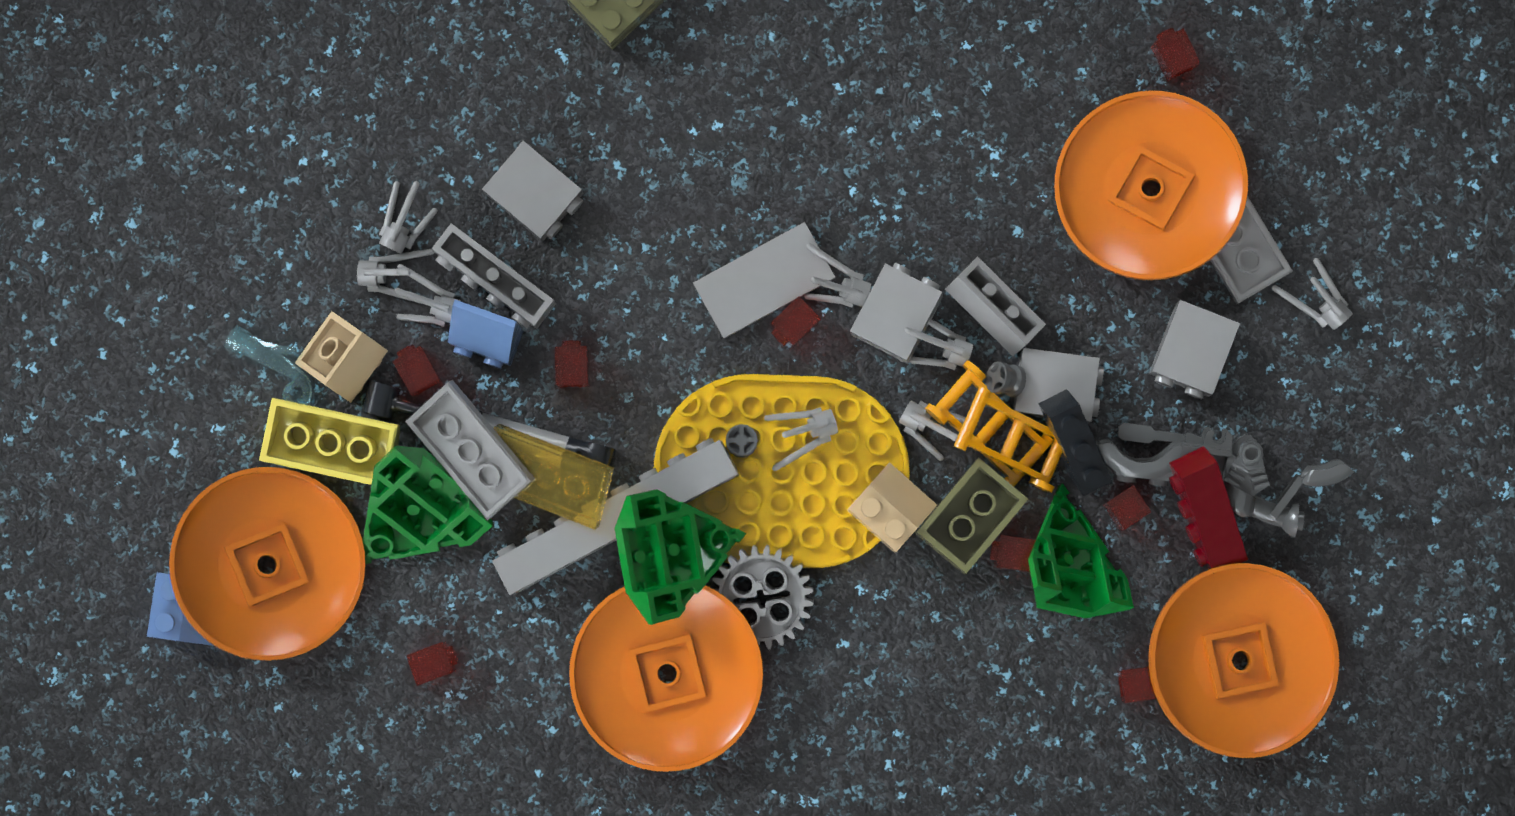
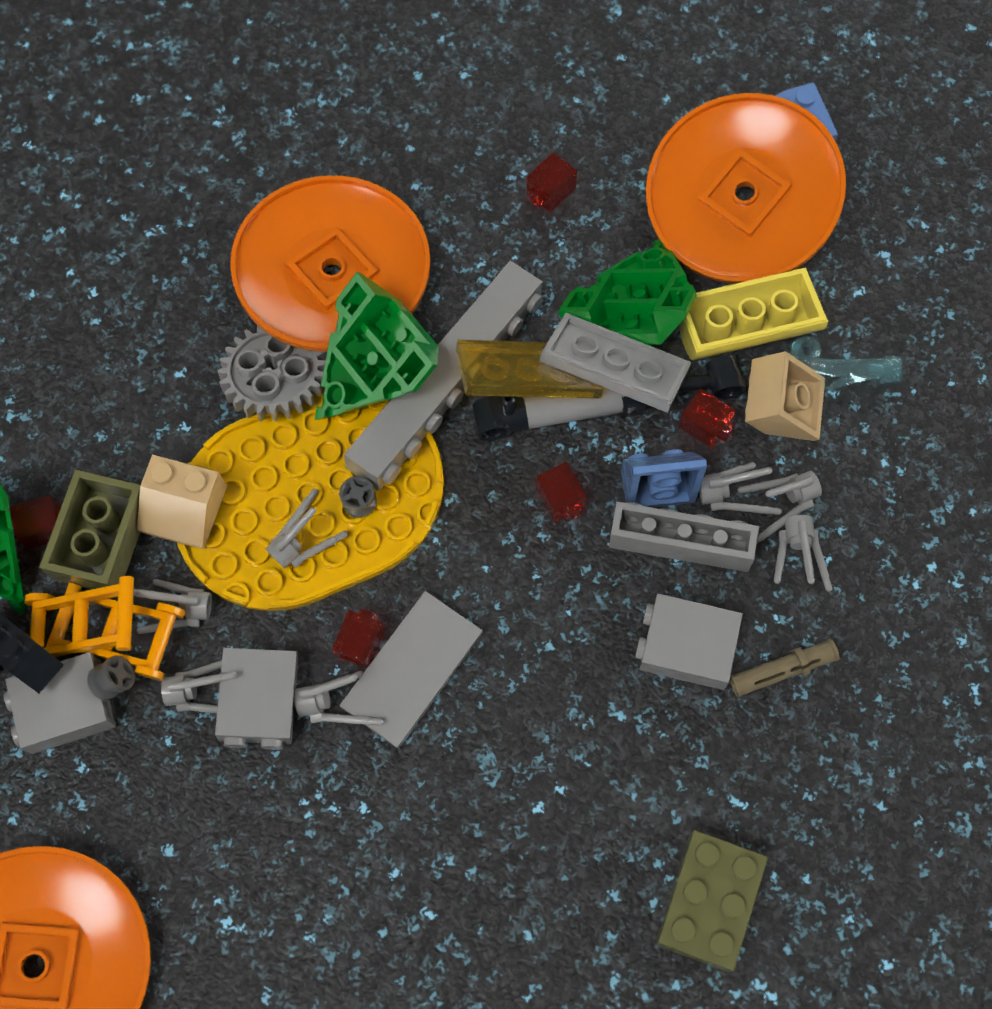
camera: 160 degrees right, 15 degrees down
(470, 136) = (798, 662): none -> dark tan pin
(995, 306) = (154, 751): light grey brick -> none

